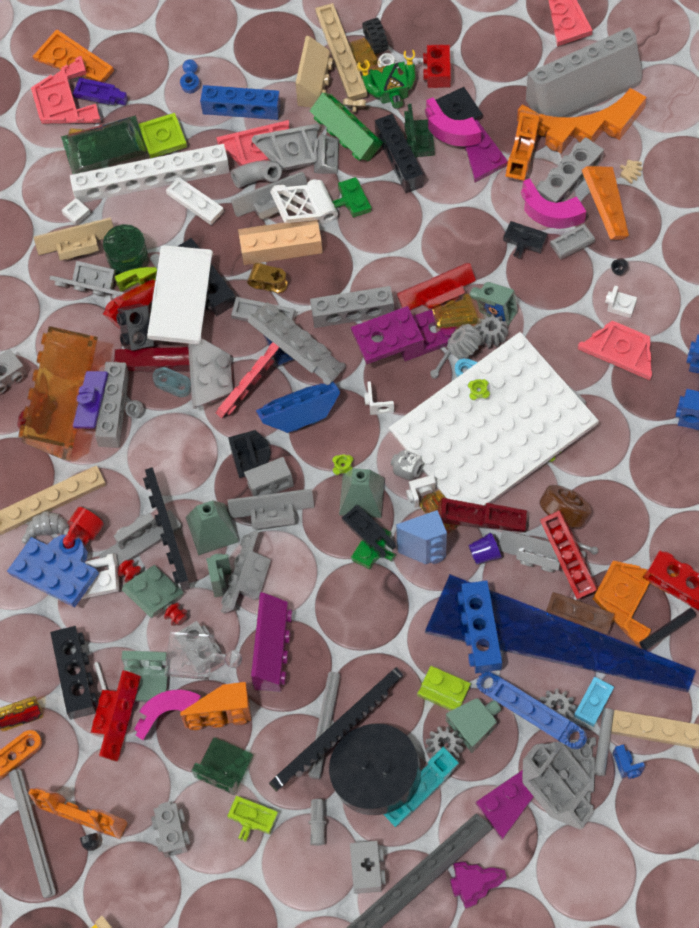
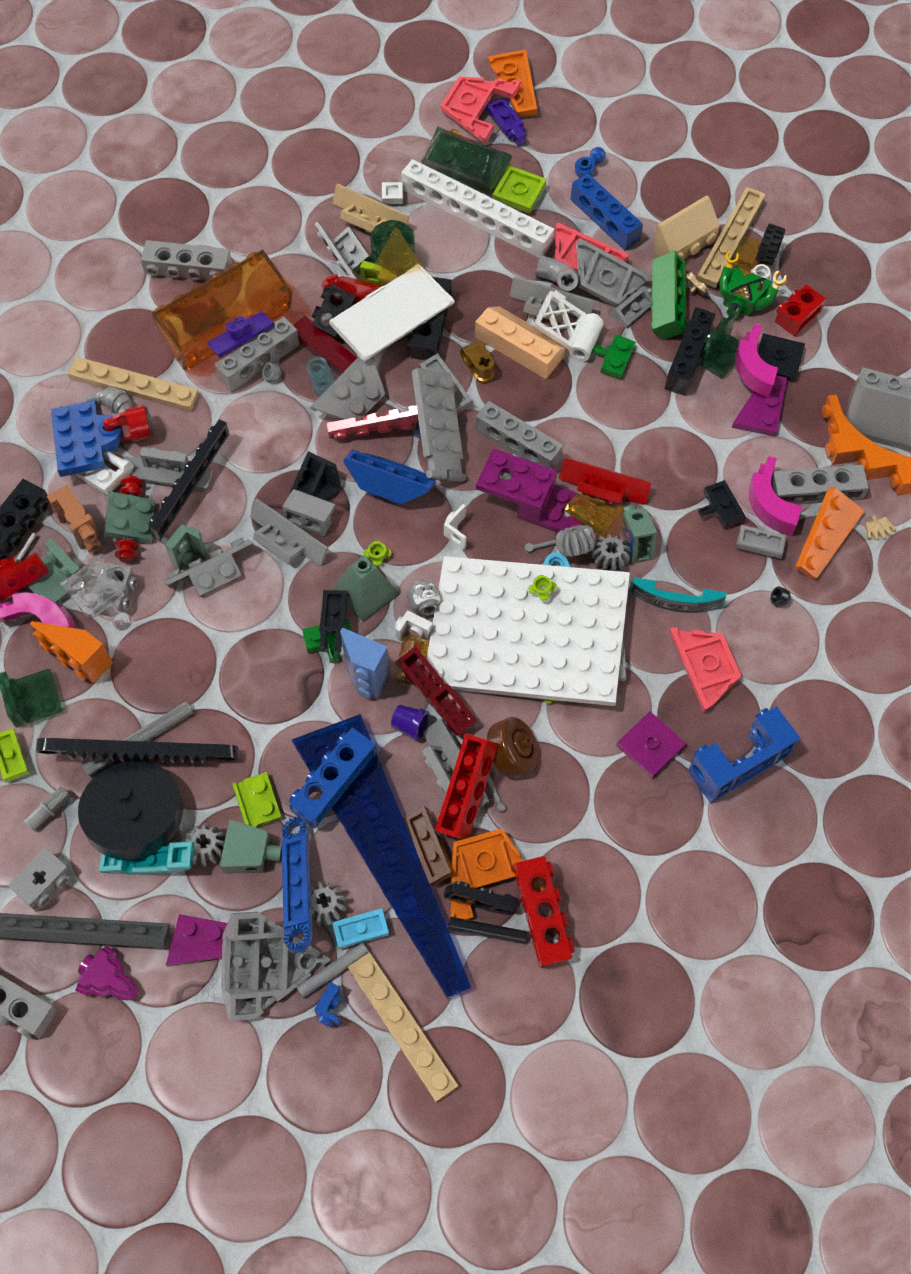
camera: 40 degrees right, 0 degrees up
(120, 624) = (81, 524): none -> nougat hips
(143, 255) = (395, 258): none -> clear yellow wing
(194, 201) = (489, 257): white plate -> none
(211, 527) = (225, 509): sand green slope -> none
(270, 642) = (164, 635): magenta slope -> none
(523, 146) = (791, 437): orange arch -> none
(541, 335) = (676, 602): none -> slope
(620, 303) = (747, 626): white bracket -> none
(640, 428) = (651, 744): none -> magenta plate
(646, 612) = (481, 898): none -> black hinge

